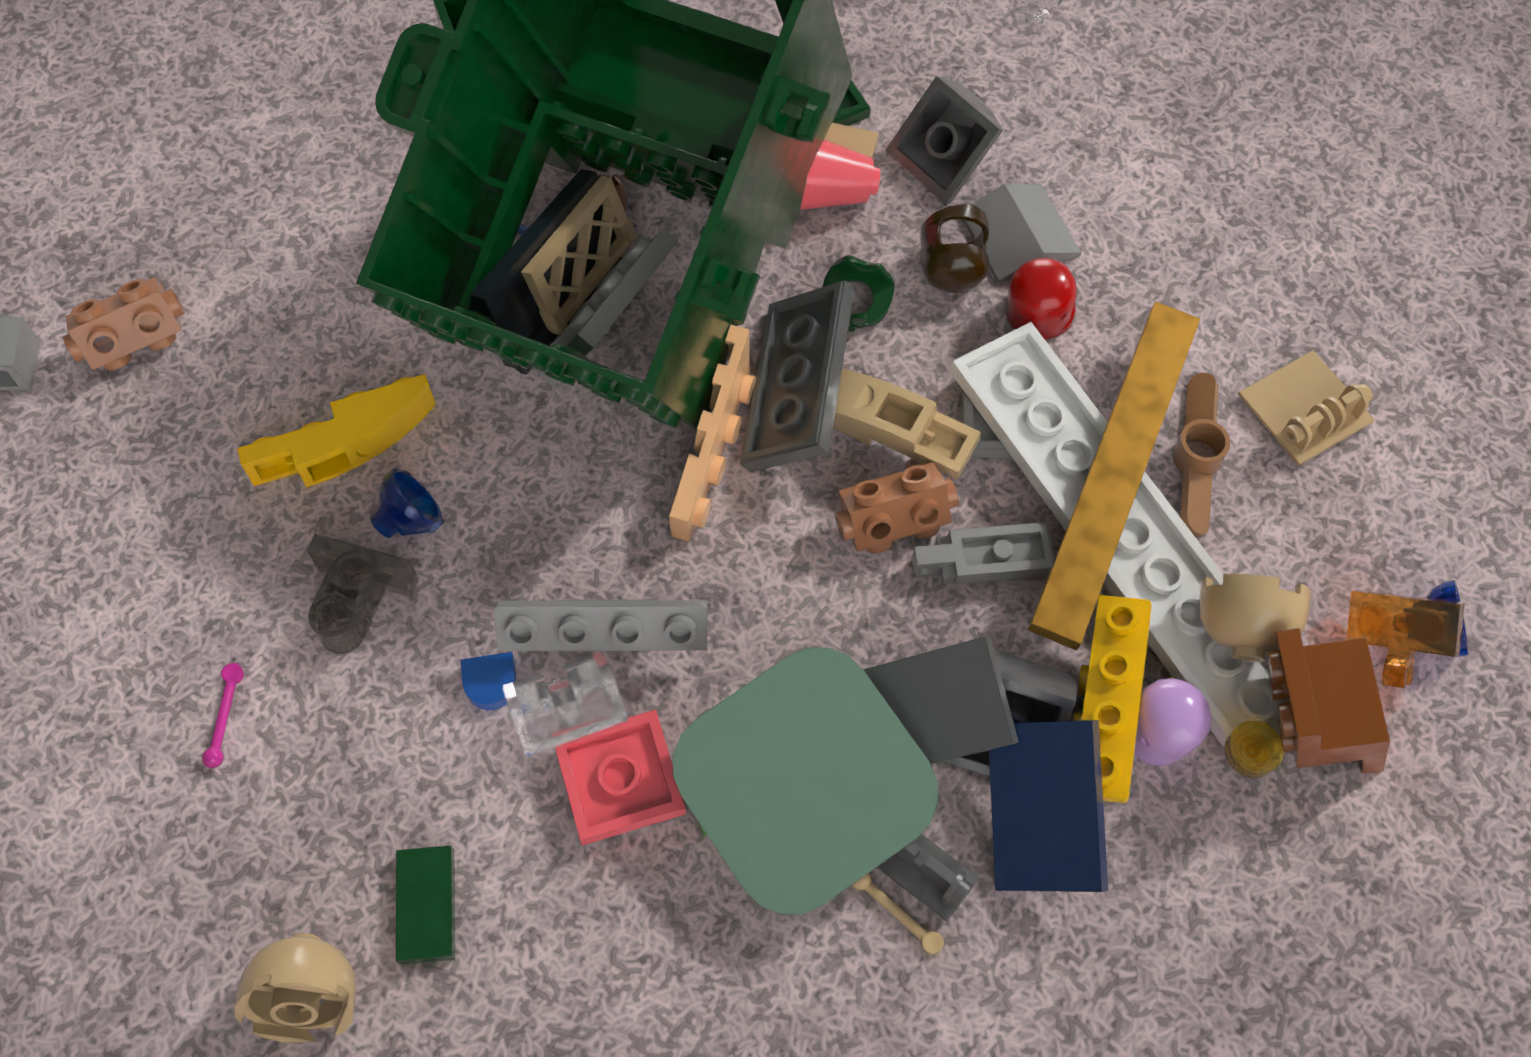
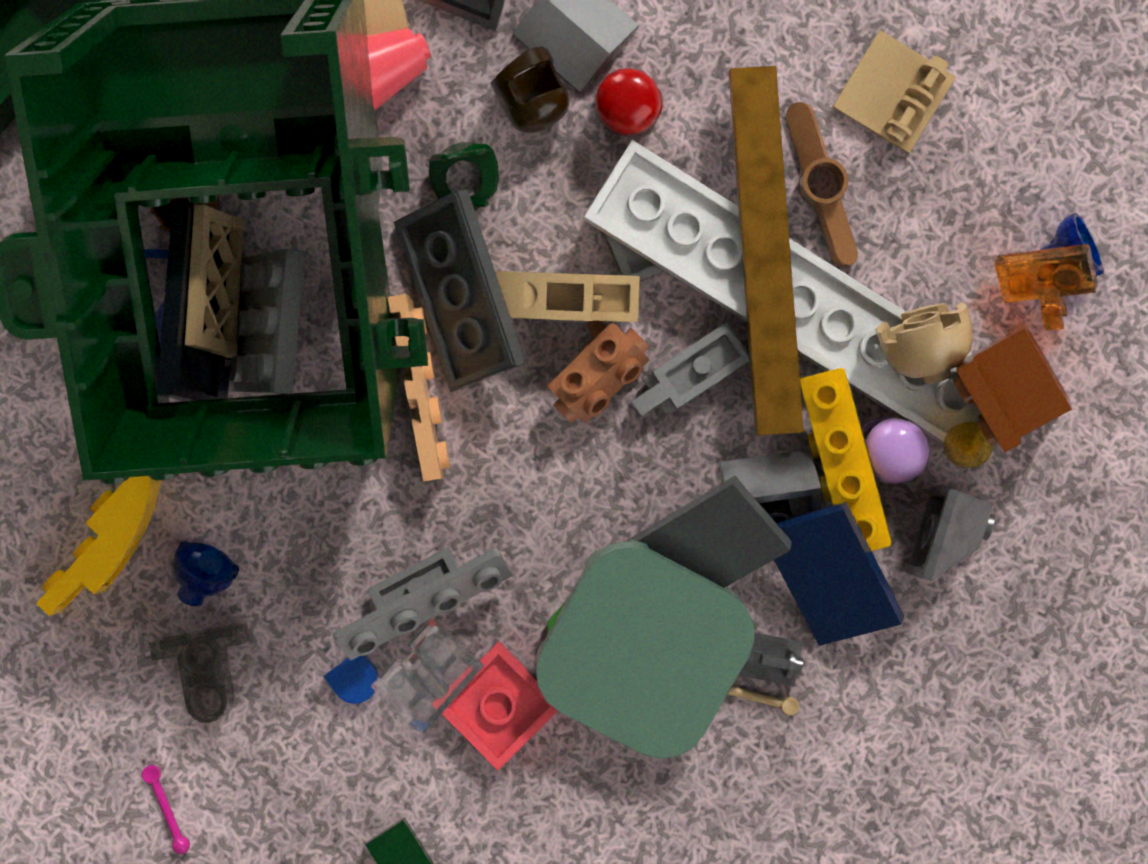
camera: 25 degrees left, 25 degrees up
(1202, 829) = (949, 532): none -> flat silver slope

